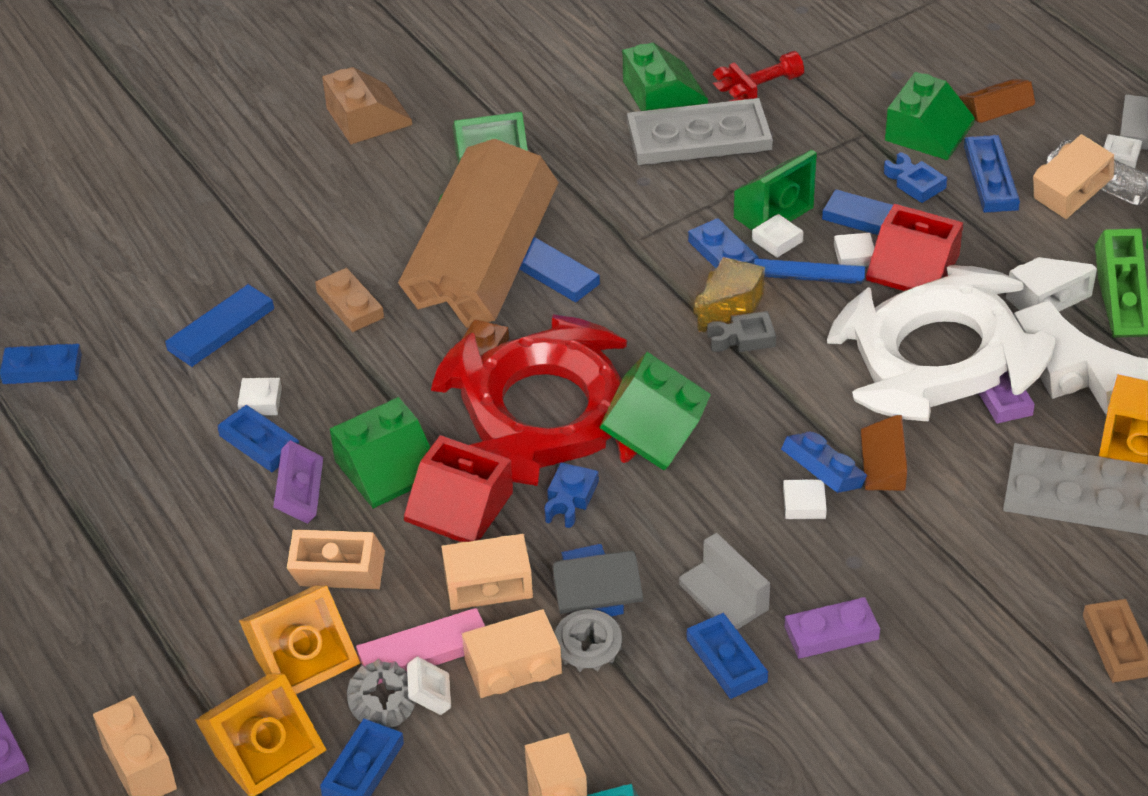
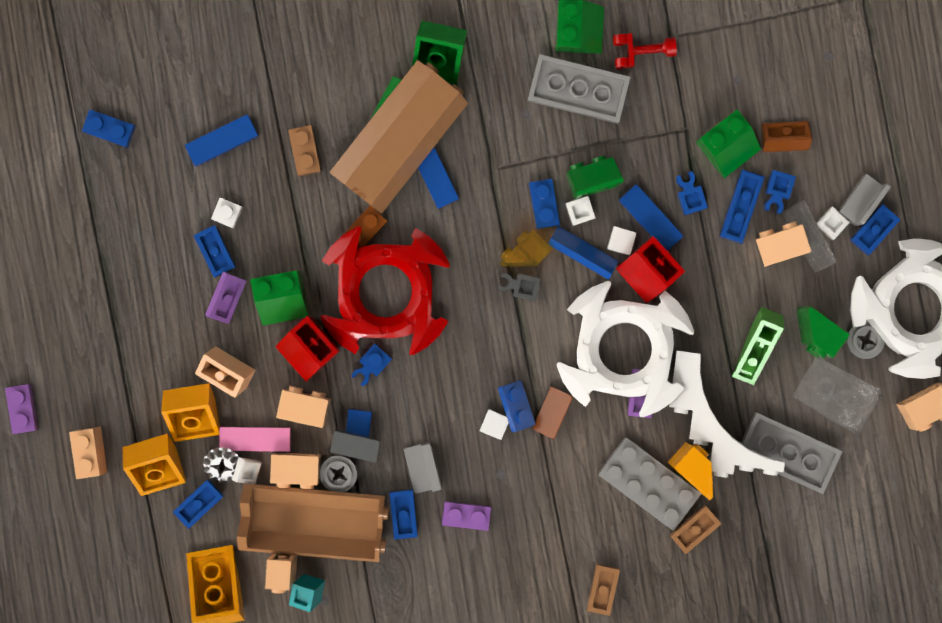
camera: 20 degrees right, 45 degrees up
(602, 701) = (312, 523): none -> medium nougat panel
(654, 410) = (436, 338): slope -> none
(1027, 138) = (779, 187): none -> blue plate
(1052, 280) = (713, 327): white slope -> none

